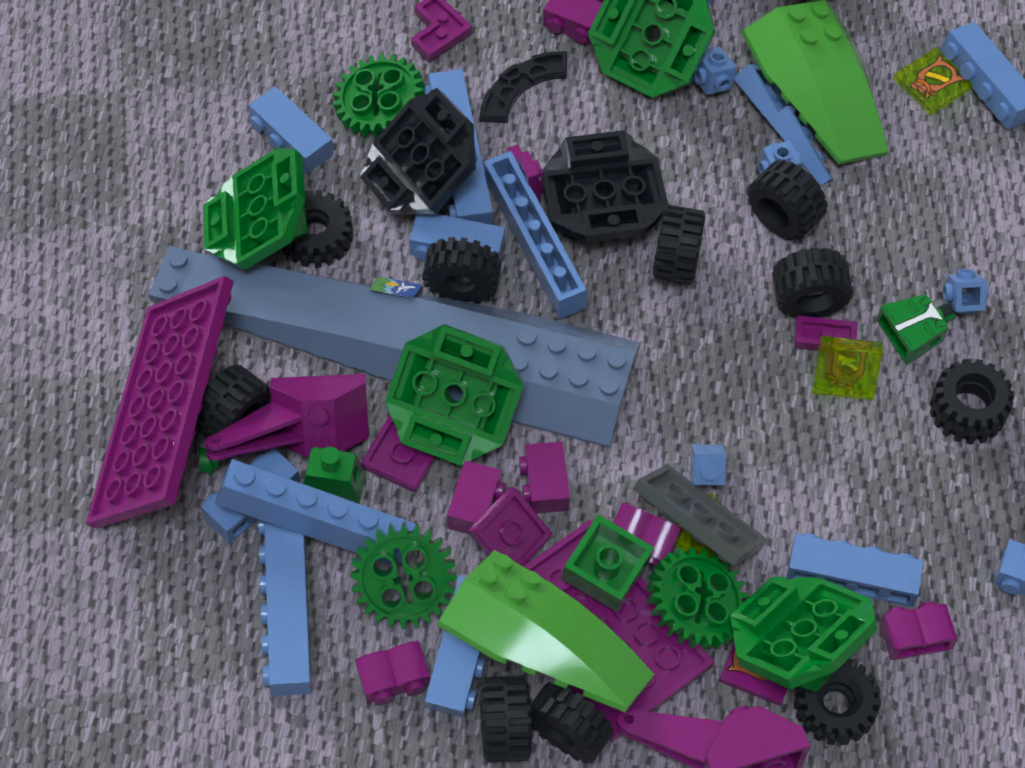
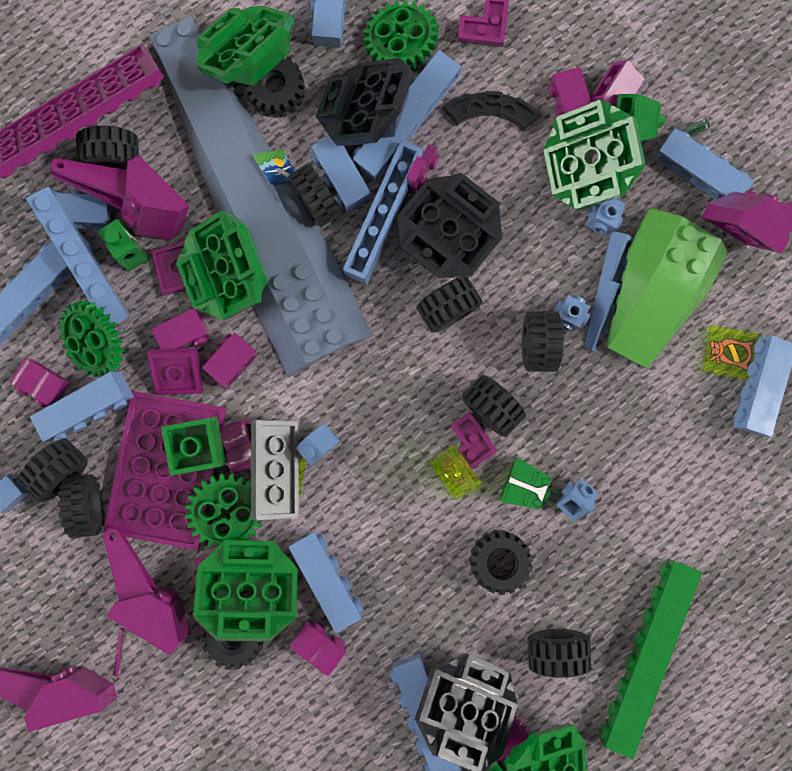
camera: 55 degrees right, 25 degrees up
(535, 624) = (112, 450): bright green wedge -> none

